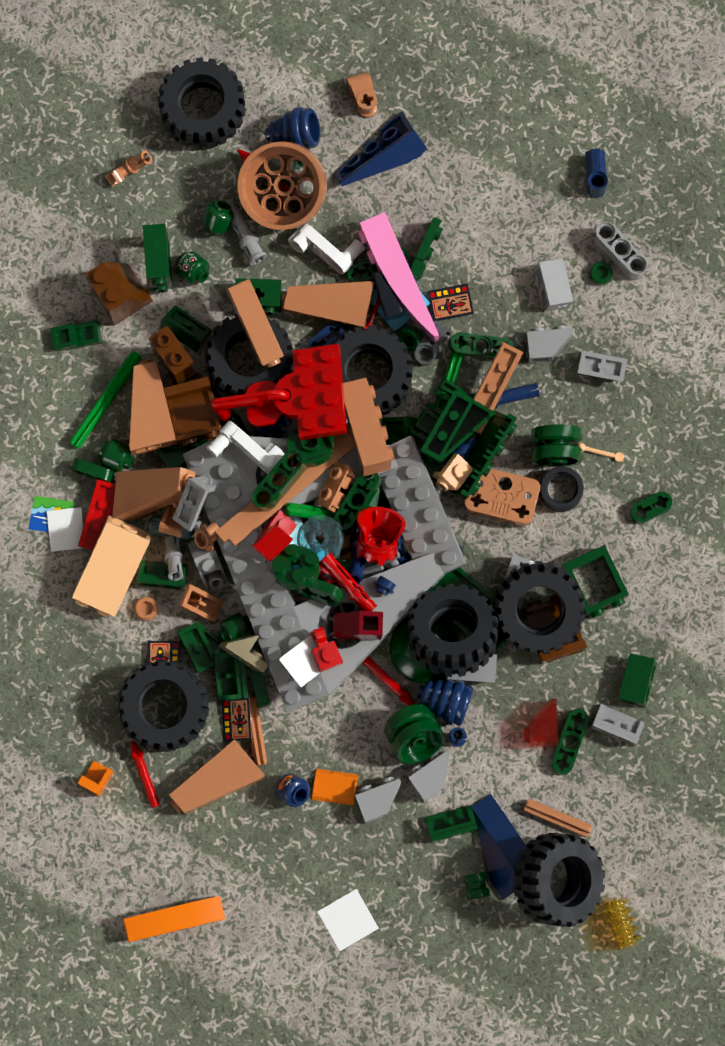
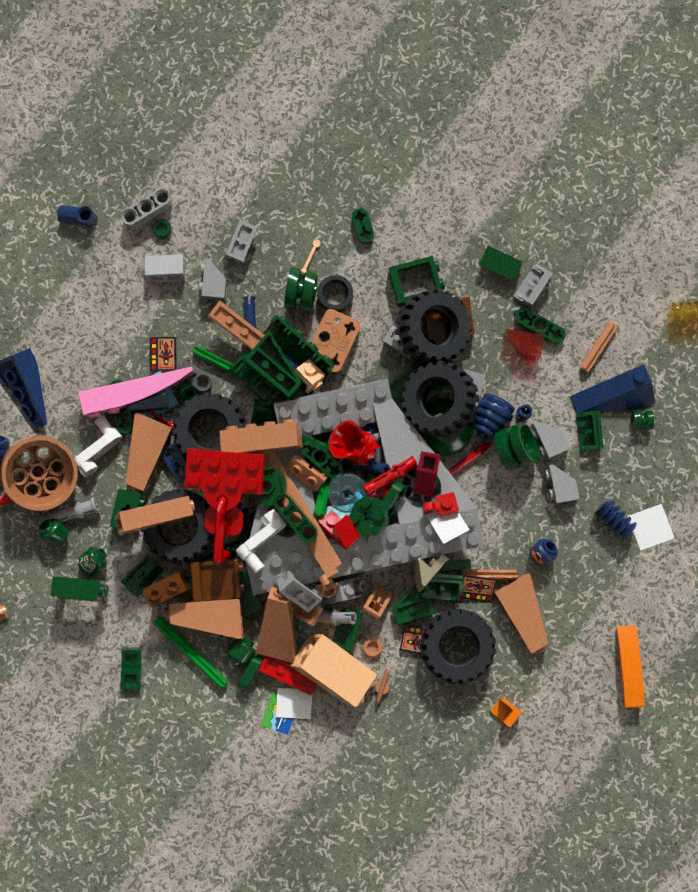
camera: 80 degrees left, 5 degrees up
(101, 628) = (382, 686): none -> nougat piece
(117, 290) = (100, 626): reddish brown slope -> none
(137, 756) = (492, 674): red piece -> none
(235, 627) = (403, 576): dark green head -> none
(335, 787) = (543, 518): orange piece -> none
(349, 871) = (616, 519): none -> dark blue piece
(384, 586) = (396, 447): dark blue plate -> none
(425, 251) = (115, 366): dark green hinge -> none
(465, 338) = (212, 330): dark green beam -> none
(582, 885) = (645, 367): black tyre -> none

